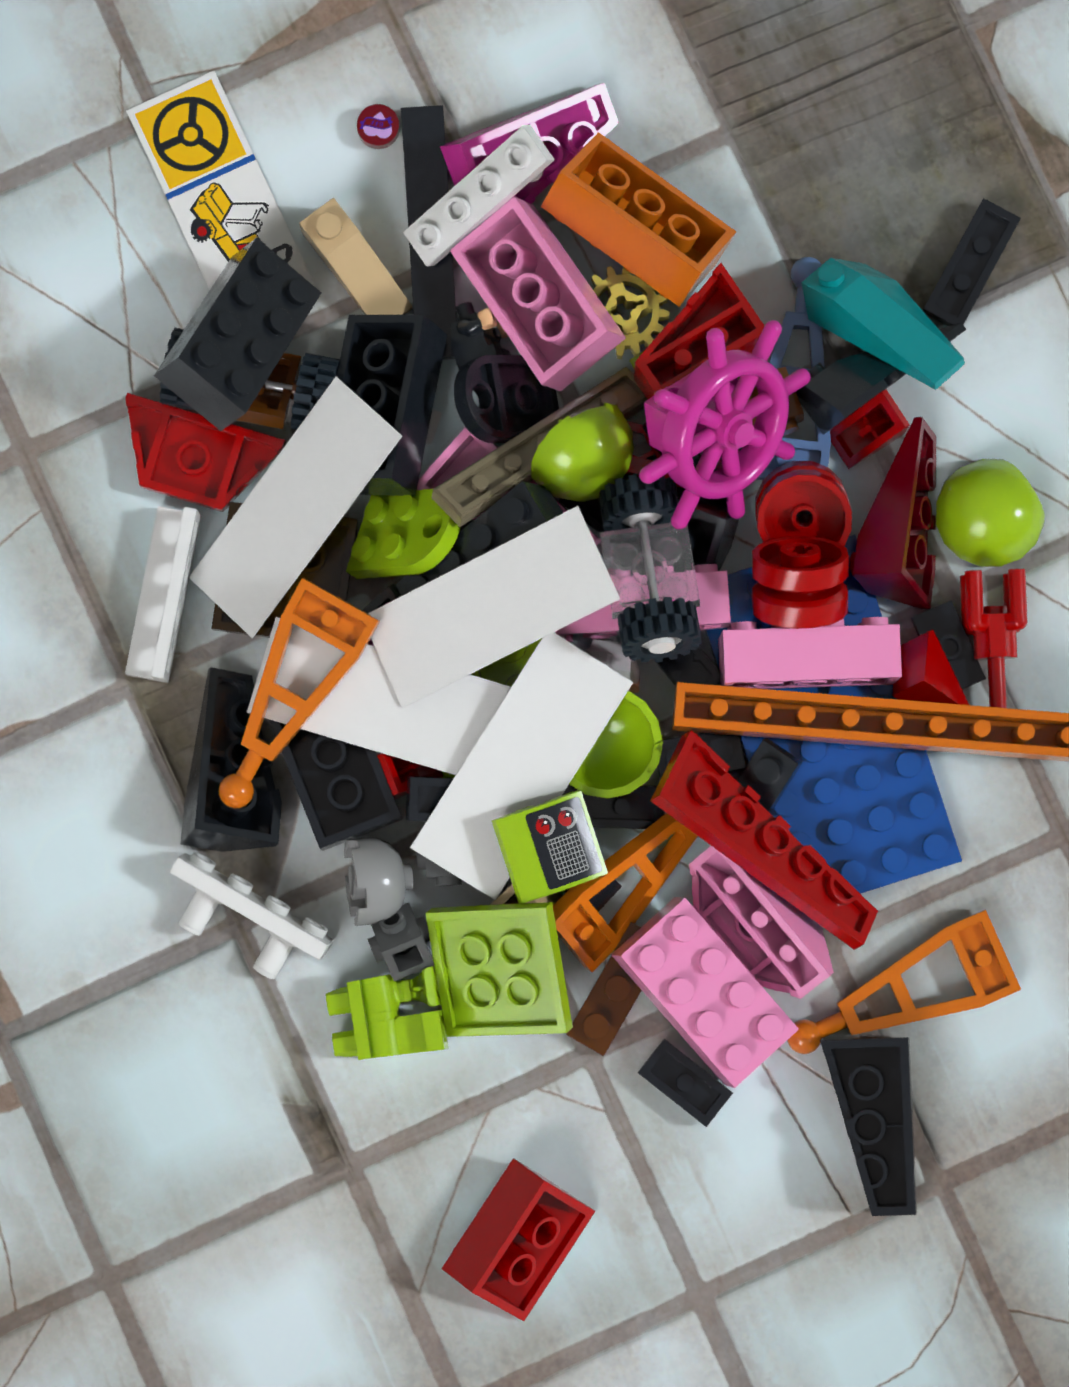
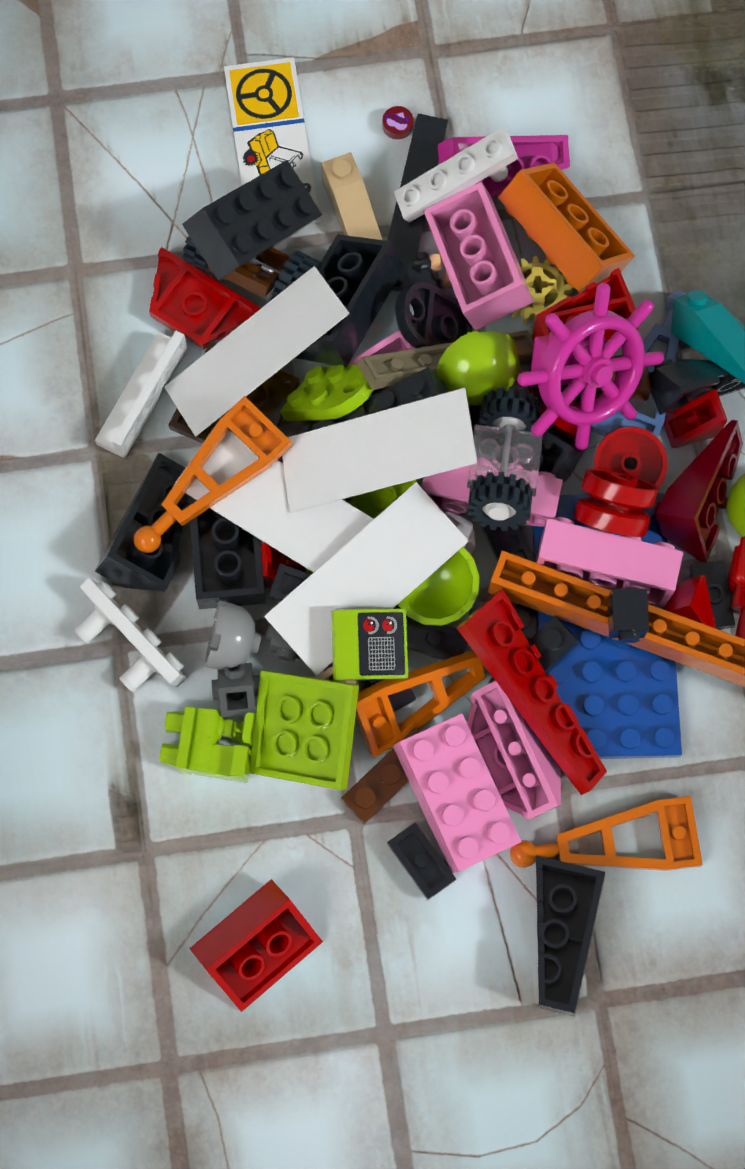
camera: 15 degrees right, 10 degrees down
(853, 723) = (628, 614): none -> black brick

